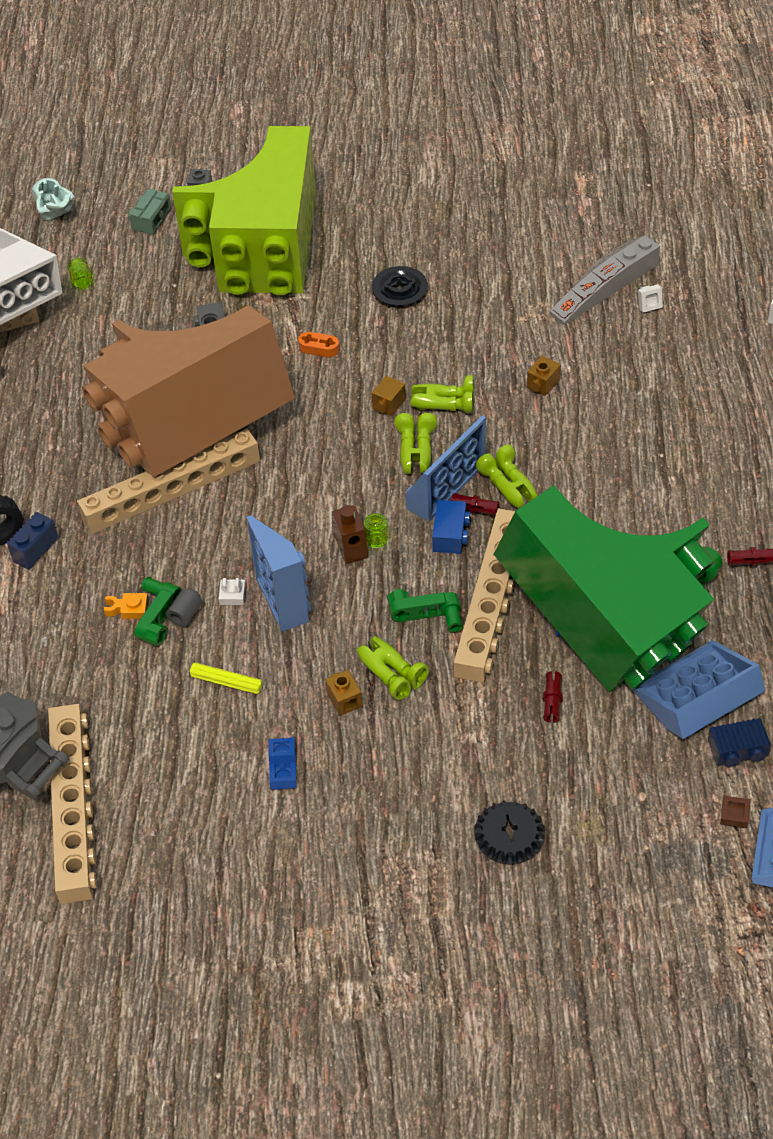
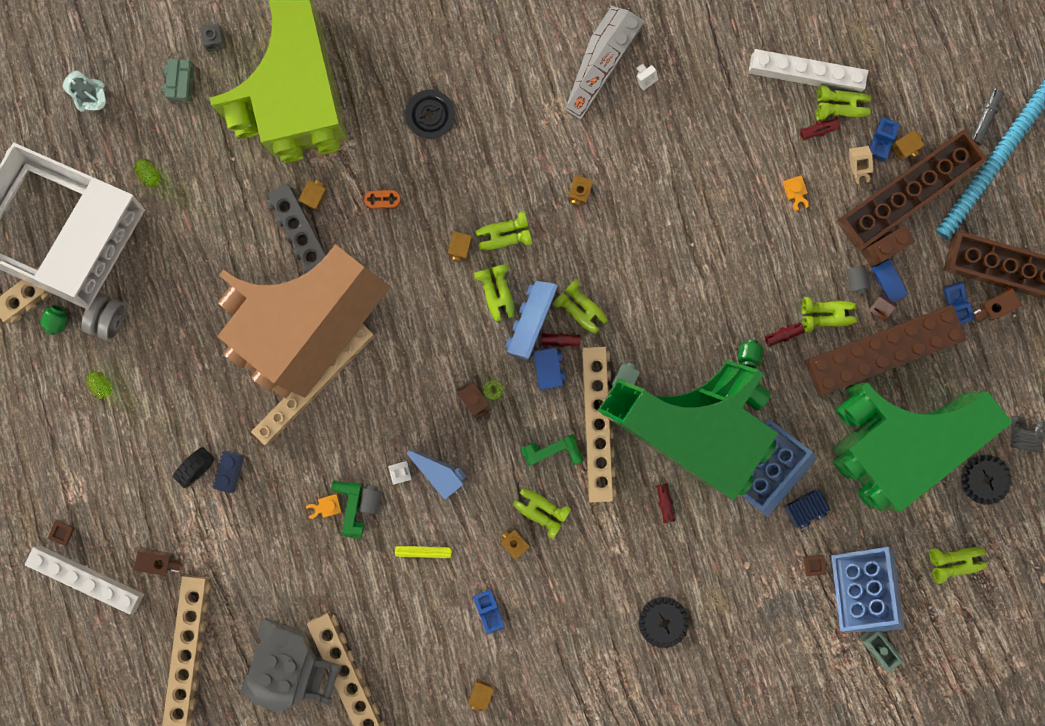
camera: 20 degrees left, 35 degrees up
(234, 851) = (481, 695): none -> pearl gold brick

